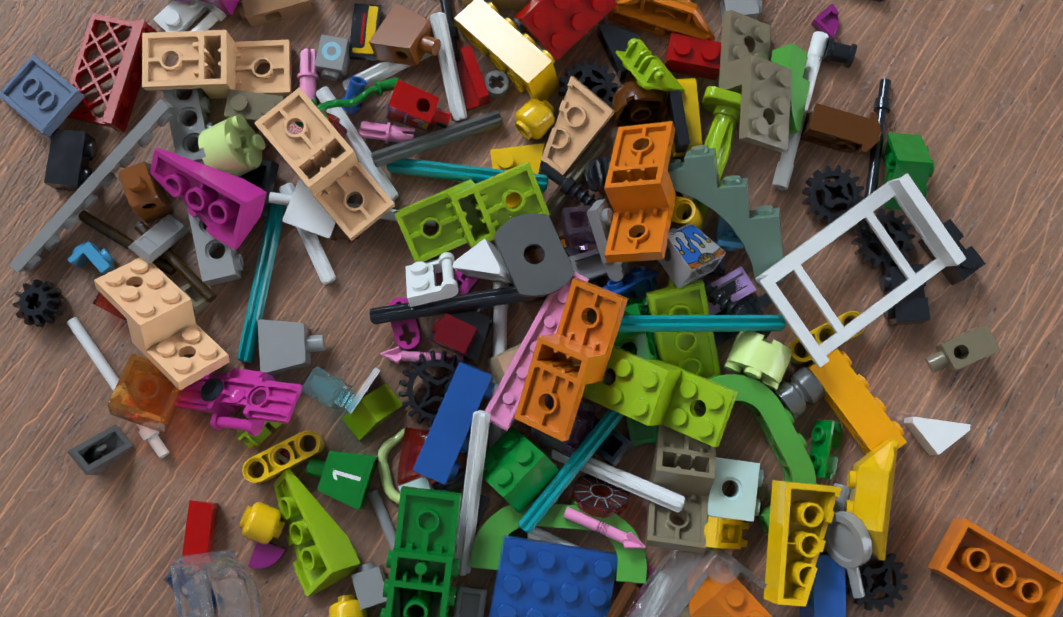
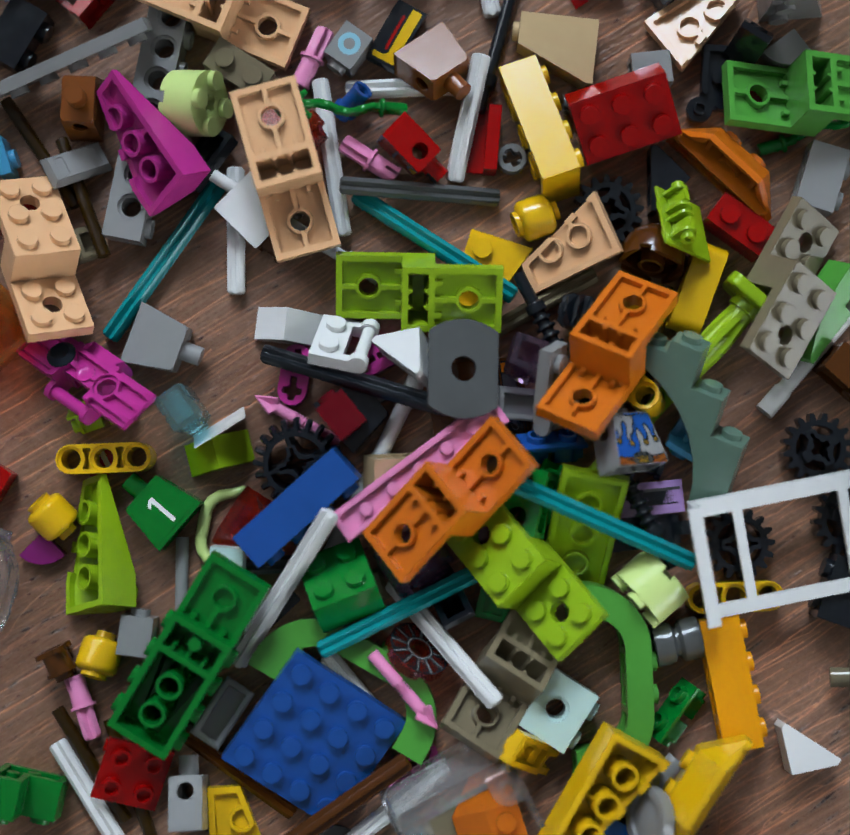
camera: 25 degrees right, 5 degrees up
(380, 288) = (286, 325): none -> white slope
(677, 115) = (686, 293): black tile -> none
(824, 287) = (718, 544): none -> black gear

